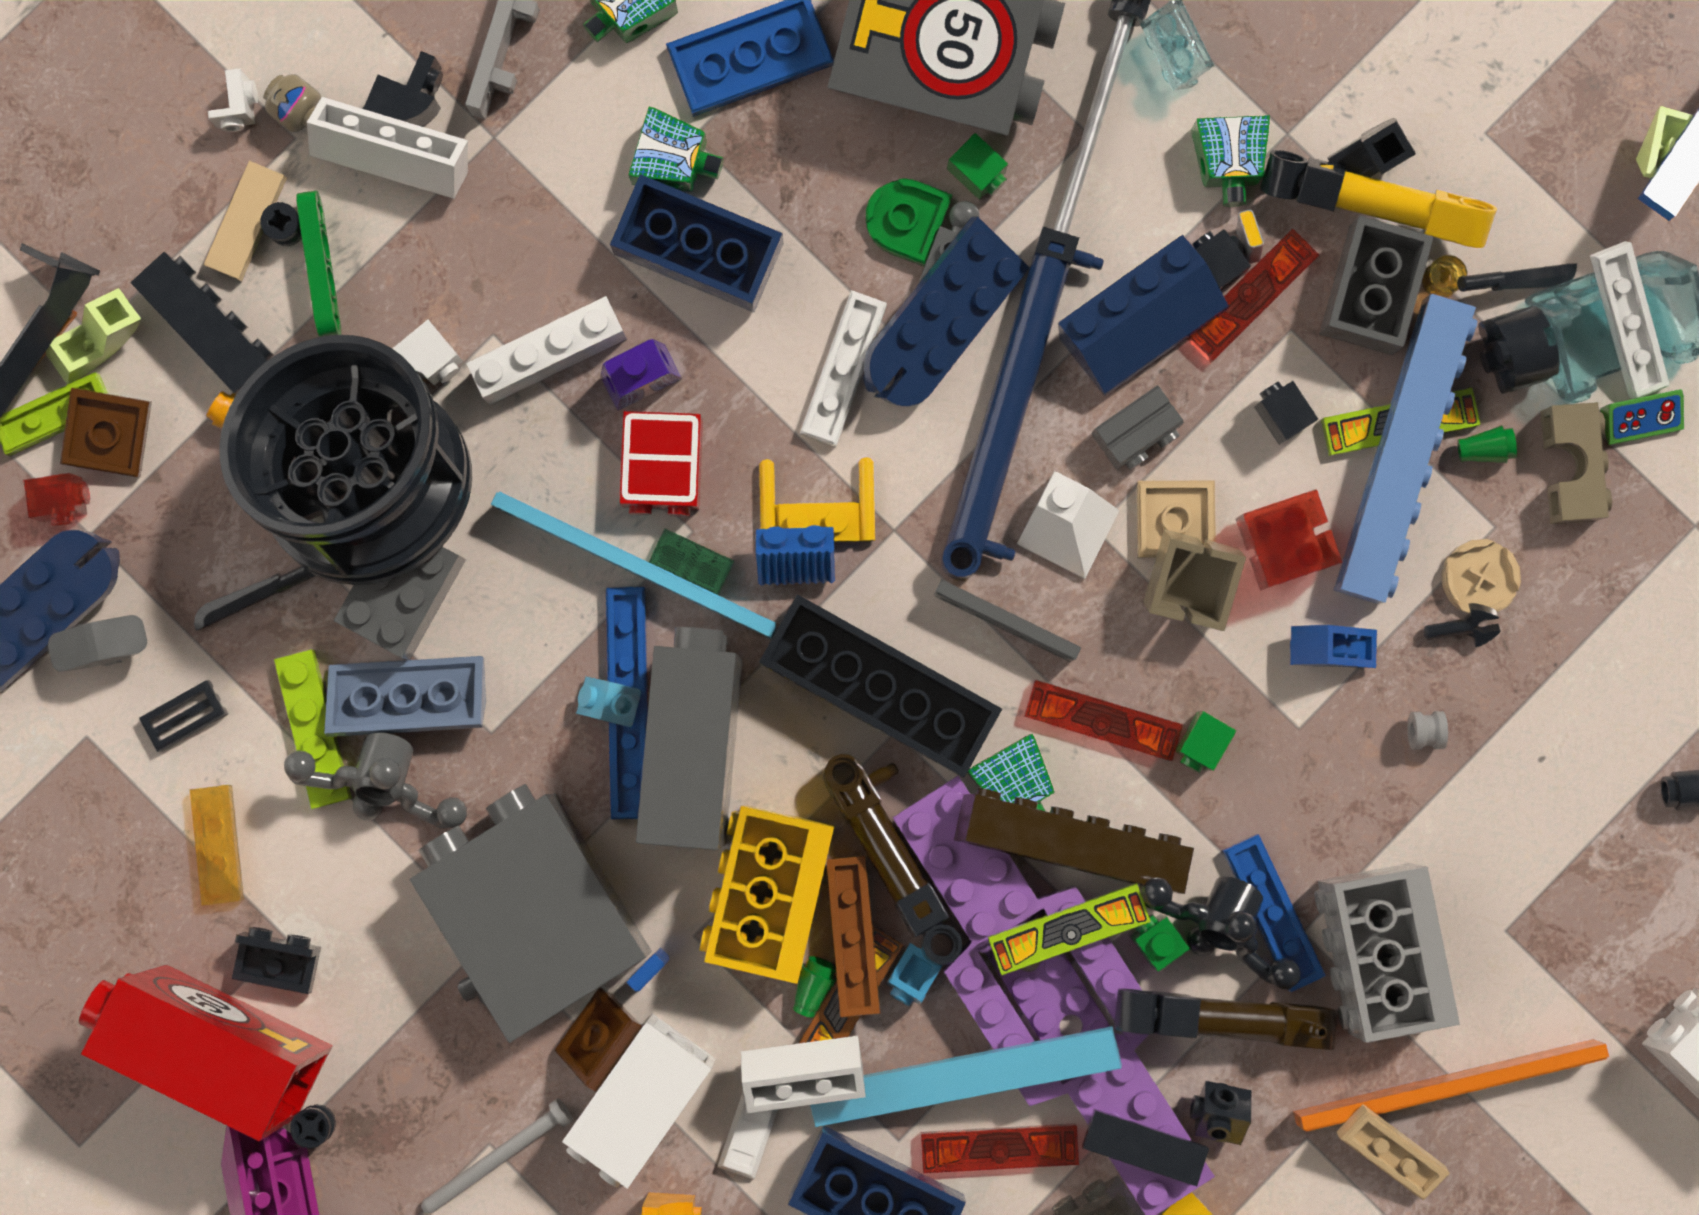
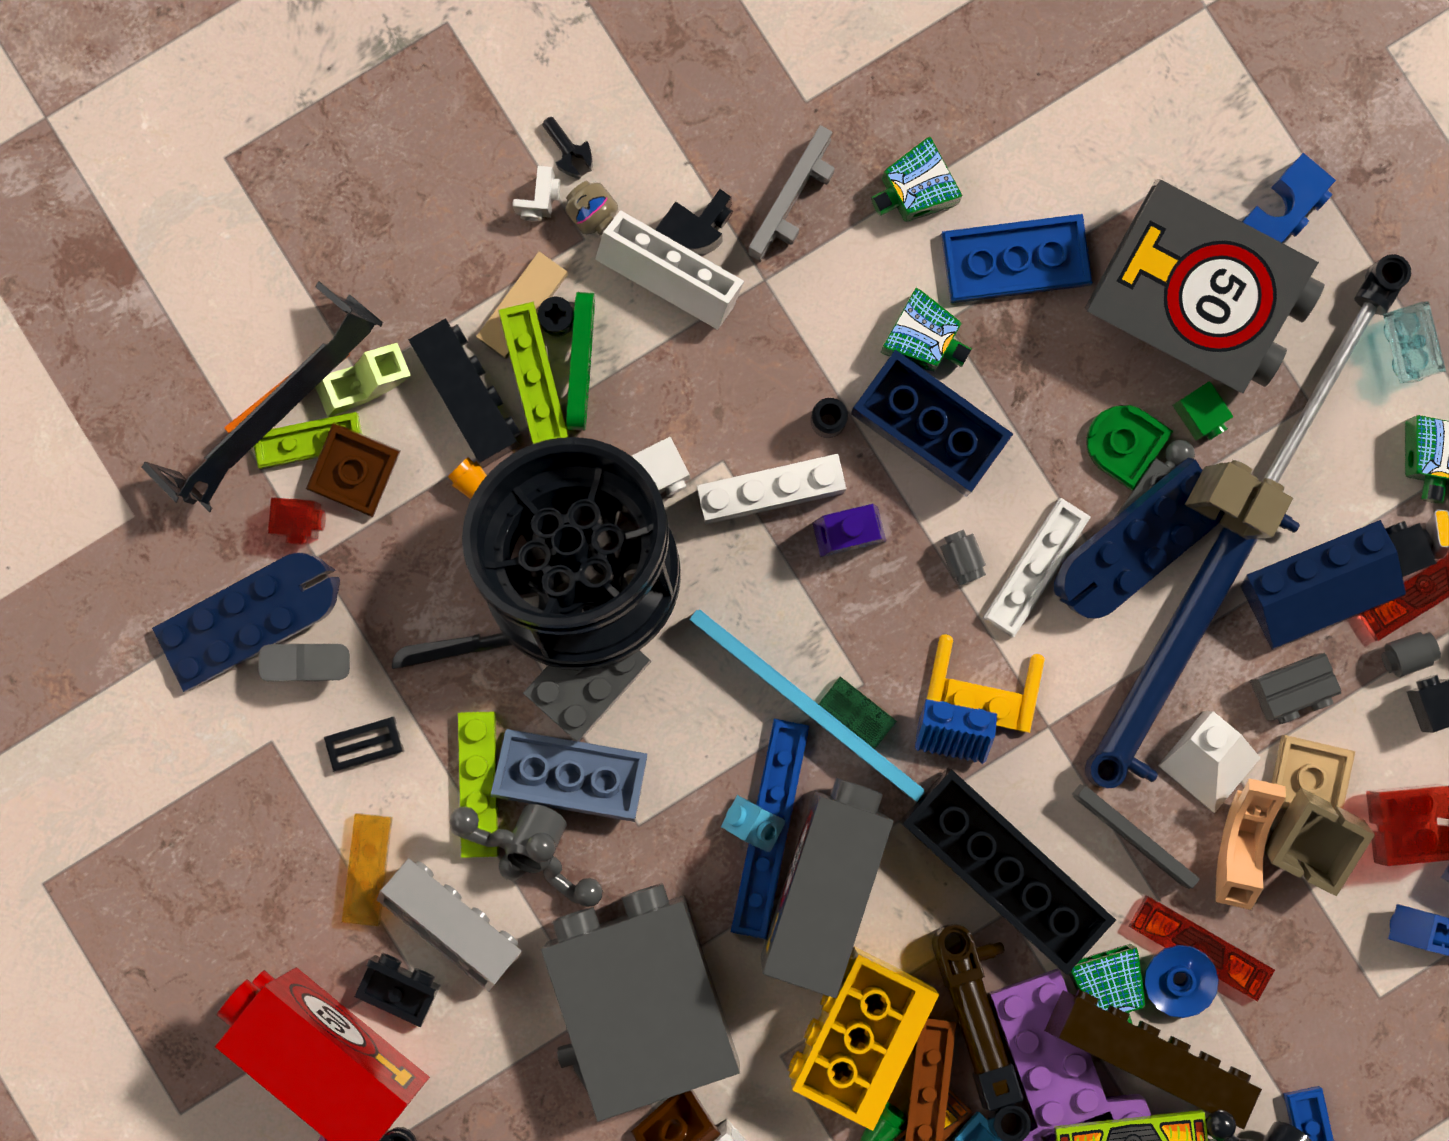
camera: 20 degrees right, 0 degrees up
(256, 47) = (567, 148): none -> black bar
(267, 281) = (532, 372): none -> lime plate
(313, 879) = (449, 924): none -> light grey brick
(584, 253) = (832, 407): none -> black brick
(648, 970) = (737, 1084): blue tile -> none
(661, 462) = (851, 616): red brick -> none
(764, 374) = (963, 557): none -> dark grey brick
(1039, 244) = (1249, 505): none -> dark tan piece
(1094, 777) = (1188, 997): none -> blue dish
(1121, 599) = (1244, 841): none -> light nougat arch
(1204, 742) = (1292, 992): green brick -> none
(1248, 366) = (1410, 654): none -> dark grey brick

